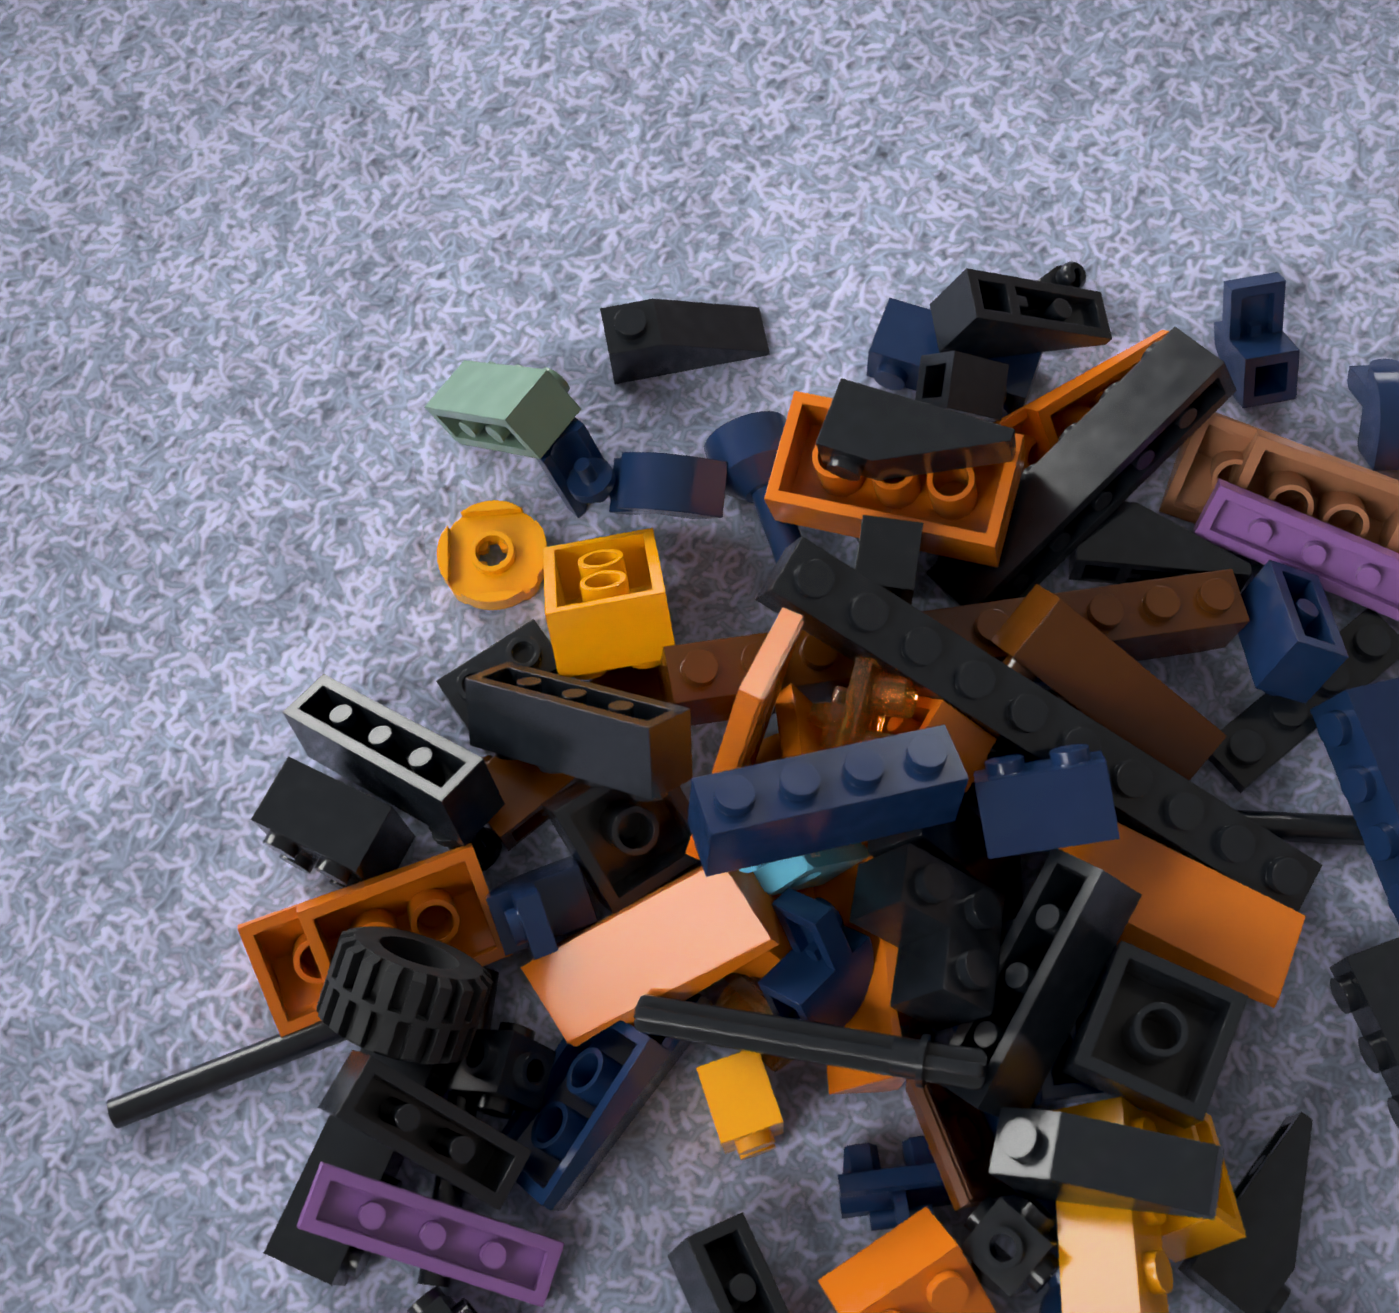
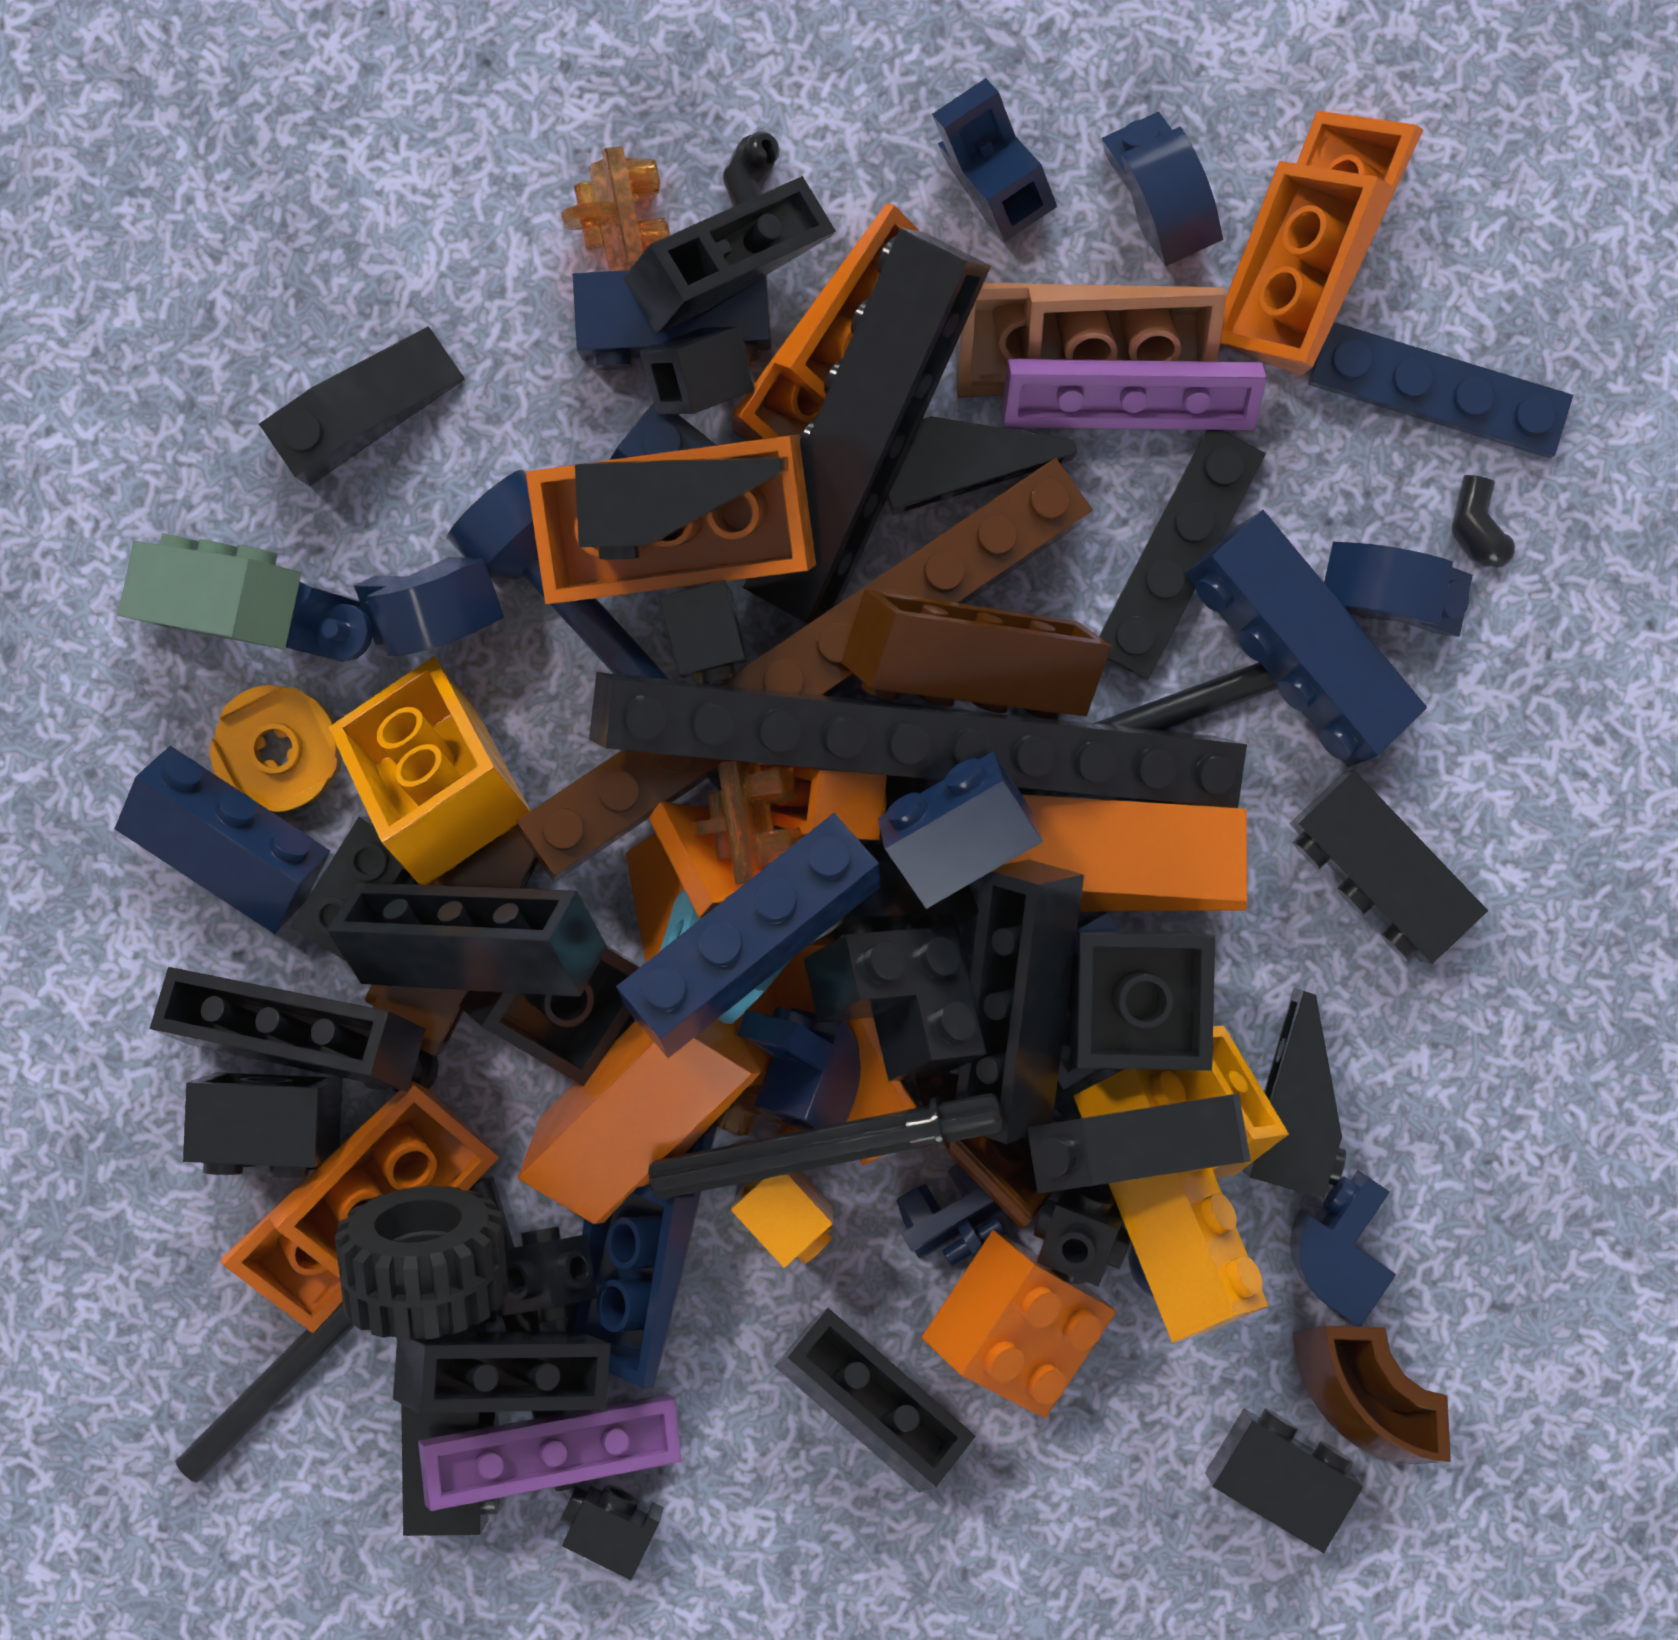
camera: 30 degrees left, 20 degrees up
(415, 597) = (221, 839): none -> dark blue brick
(540, 907) = (505, 1106): dark blue brick -> none
(757, 699) = (639, 865): orange tile -> none
(934, 268) = (608, 211): none -> clear orange hips
(1290, 633) = (1136, 503): dark blue brick -> none

